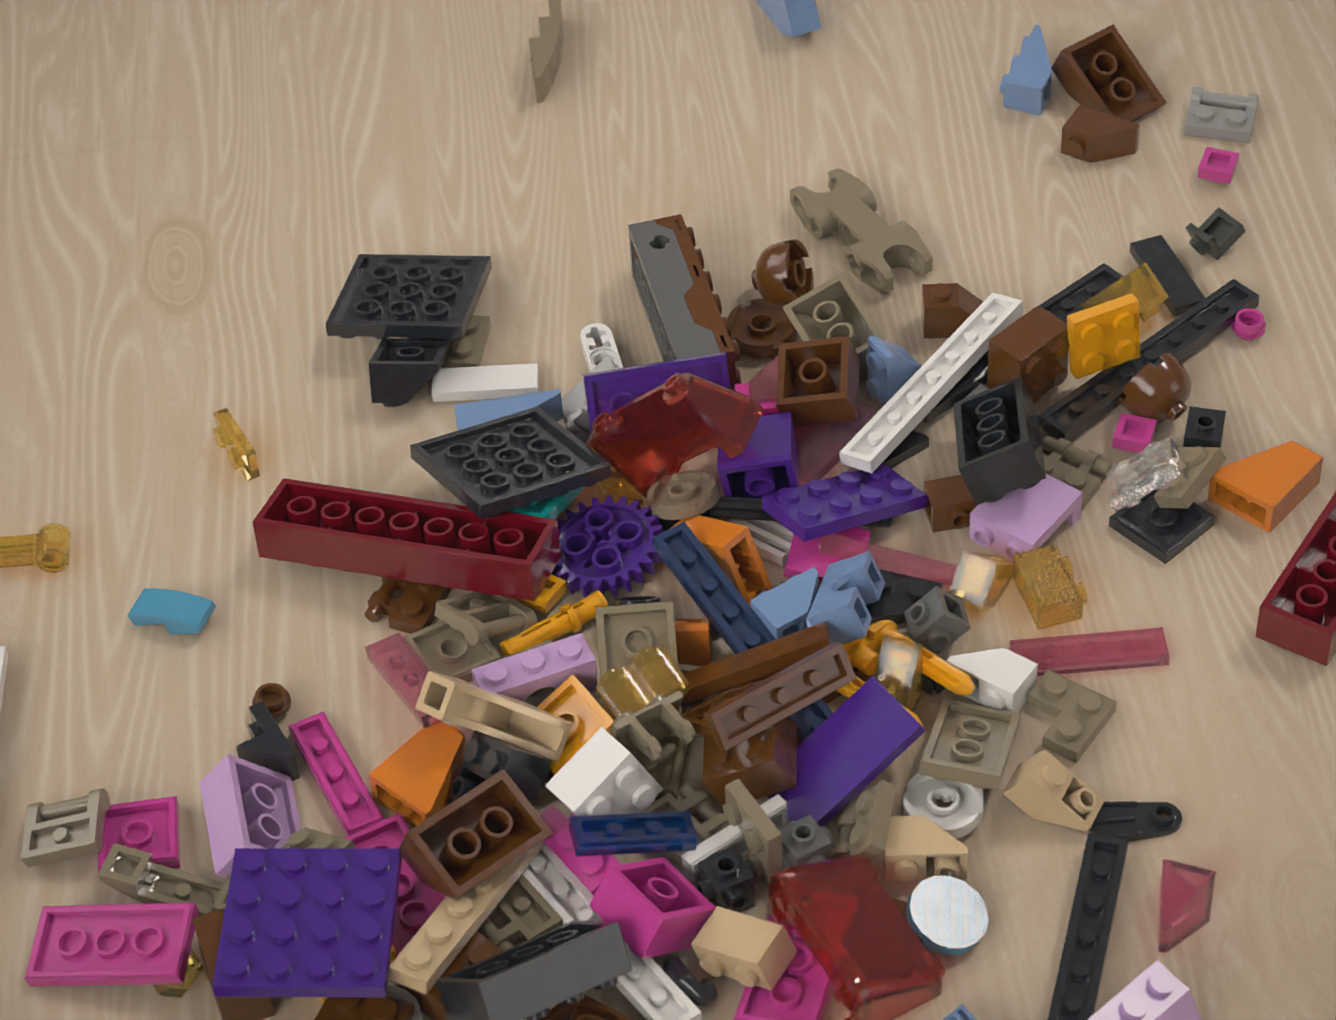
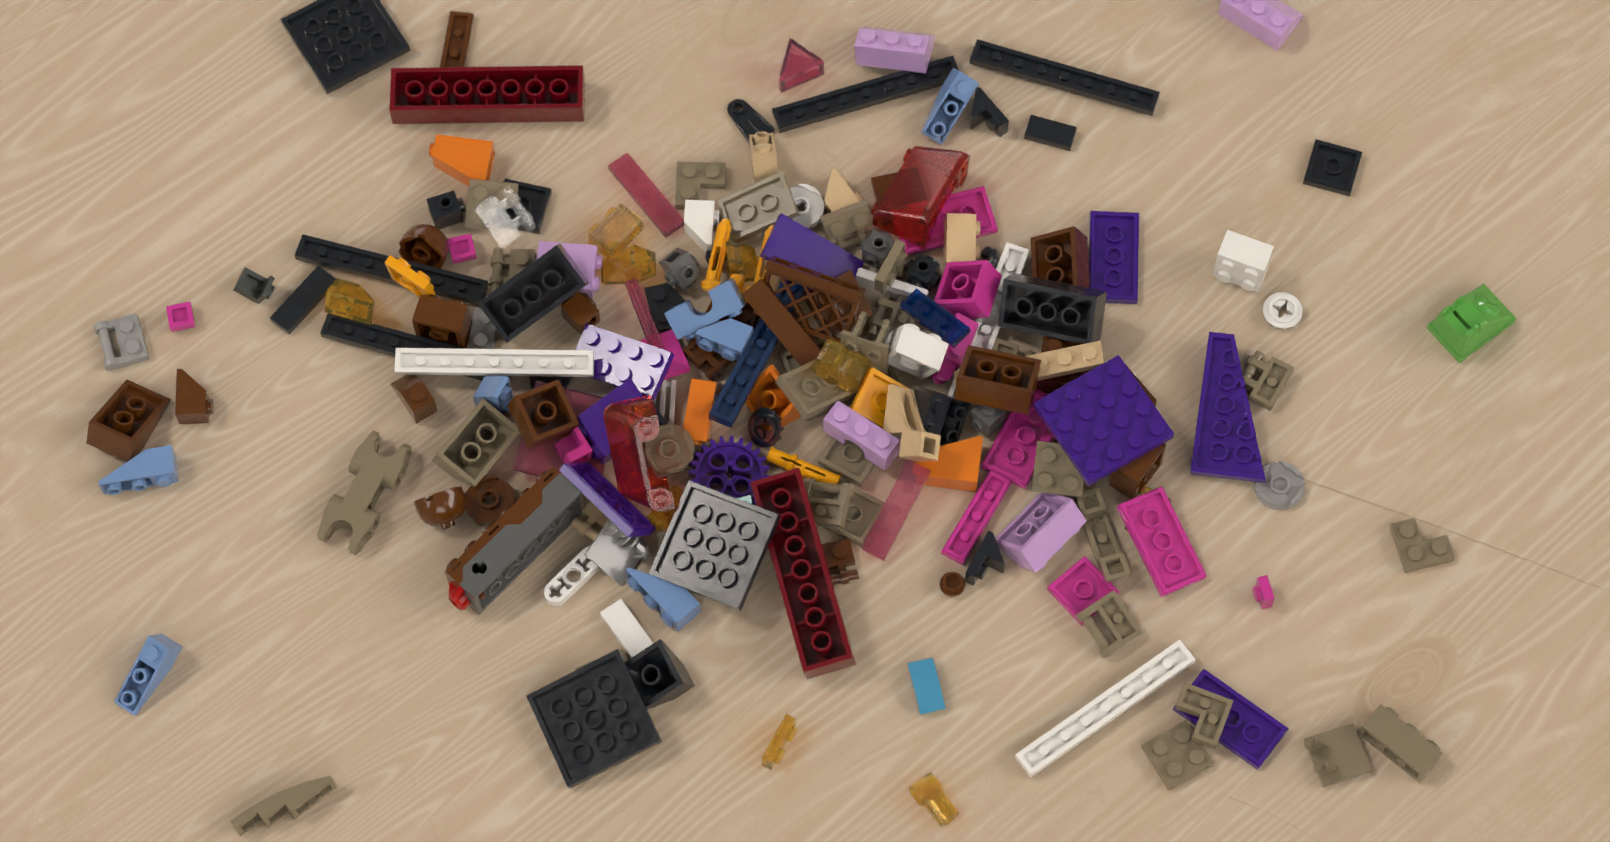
camera: 125 degrees left, 20 degrees up
(947, 915) = (872, 166): tile -> none
(1249, 324) = (330, 228): dark pink plate -> none

